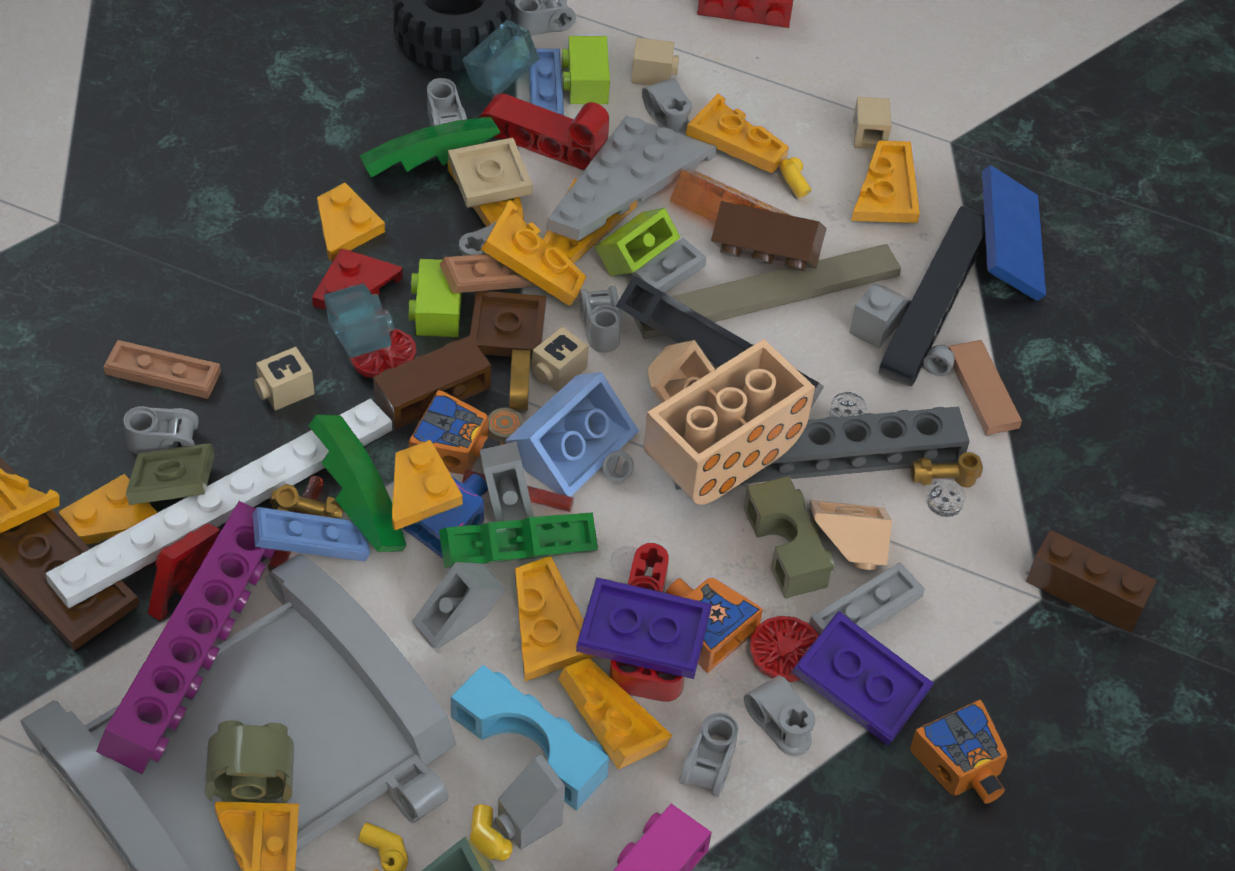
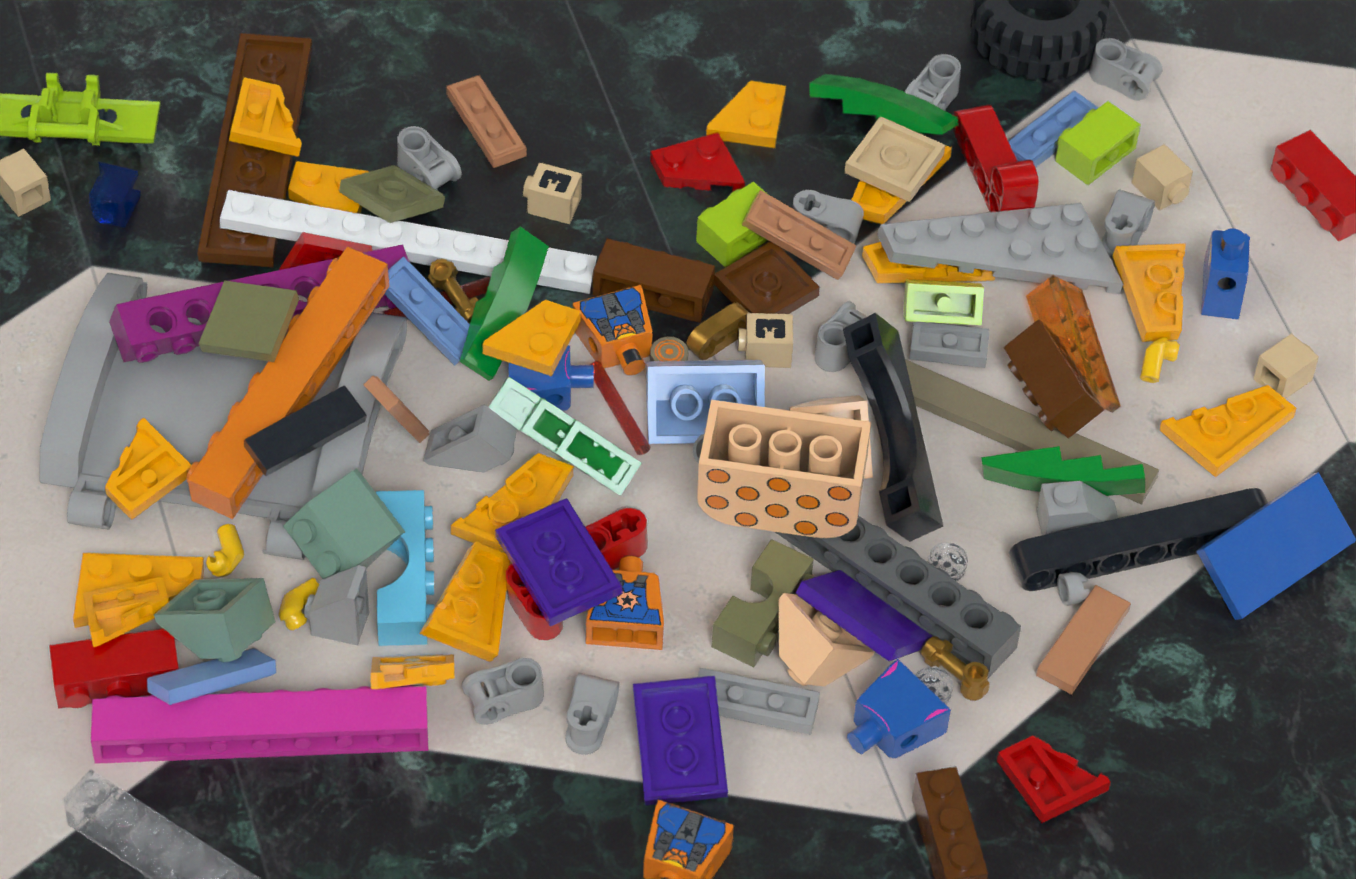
camera: 50 degrees right, 0 degrees up
(221, 650) = (249, 321): none -> olive tile
(249, 763) = (183, 408): olive brick -> none
(297, 674) = (302, 366): none -> orange brick
(358, 320) = (653, 191): clear light blue brick -> none
(367, 695) = (305, 430): none -> black tile
(377, 361) = (650, 229): red wheel -> none
(400, 619) = (397, 408): none -> nougat tile
(473, 743) = (344, 526): none -> sand green slope
(501, 58) = (1027, 79): clear light blue brick -> none
(506, 482) = (603, 389): light grey slope -> none
(525, 252) = (840, 240): light orange wing -> none
(636, 805) = (409, 670): none -> light orange wing
(770, 90) = (1225, 257): none -> blue torso
(780, 645) = (655, 663): red wheel -> none
(842, 294) = (1042, 466): none -> green slope
(861, 486) = (863, 615): none -> dark purple tile
(956, 532) = (897, 714): none -> blue torso
(1084, 491) = (1049, 778): none -> red wing

